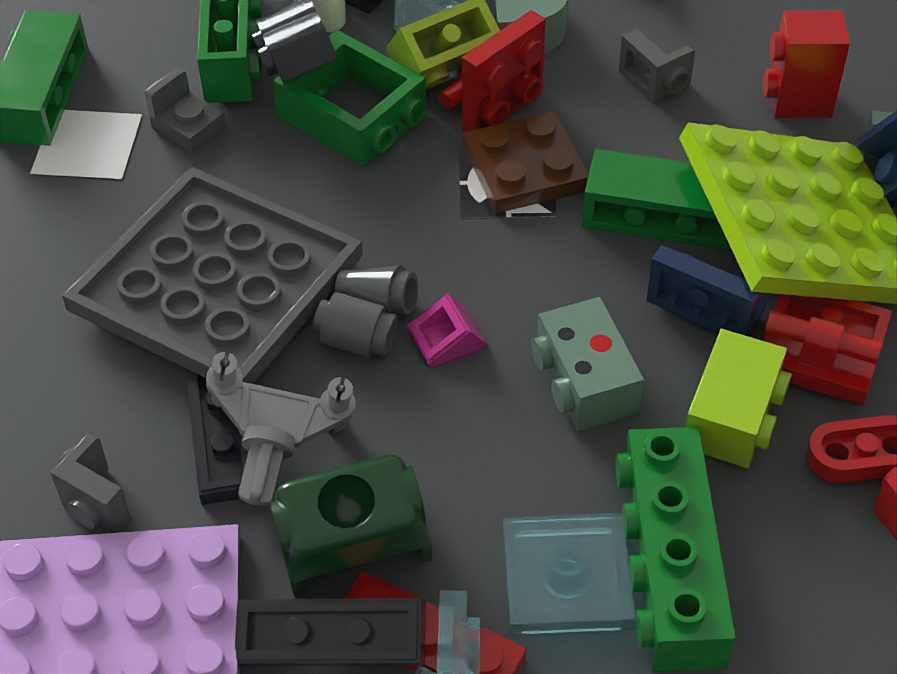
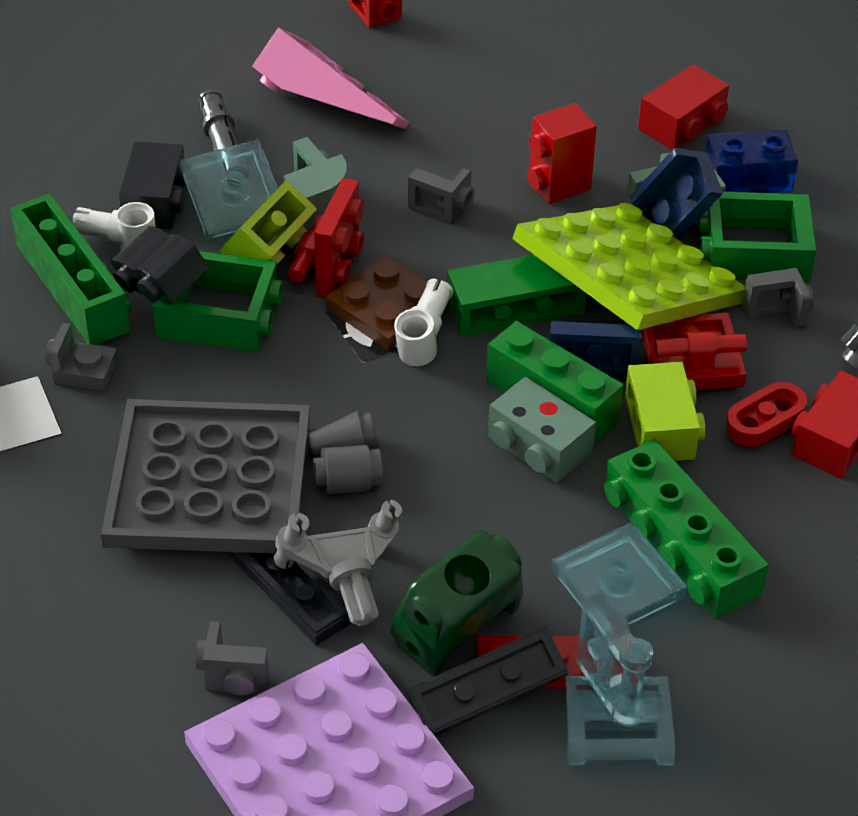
camera: 30 degrees left, 5 degrees down
(446, 332) = (415, 449): dark pink slope -> none
(527, 200) = (419, 326): none -> white pin
(642, 313) = (524, 353): none -> green brick

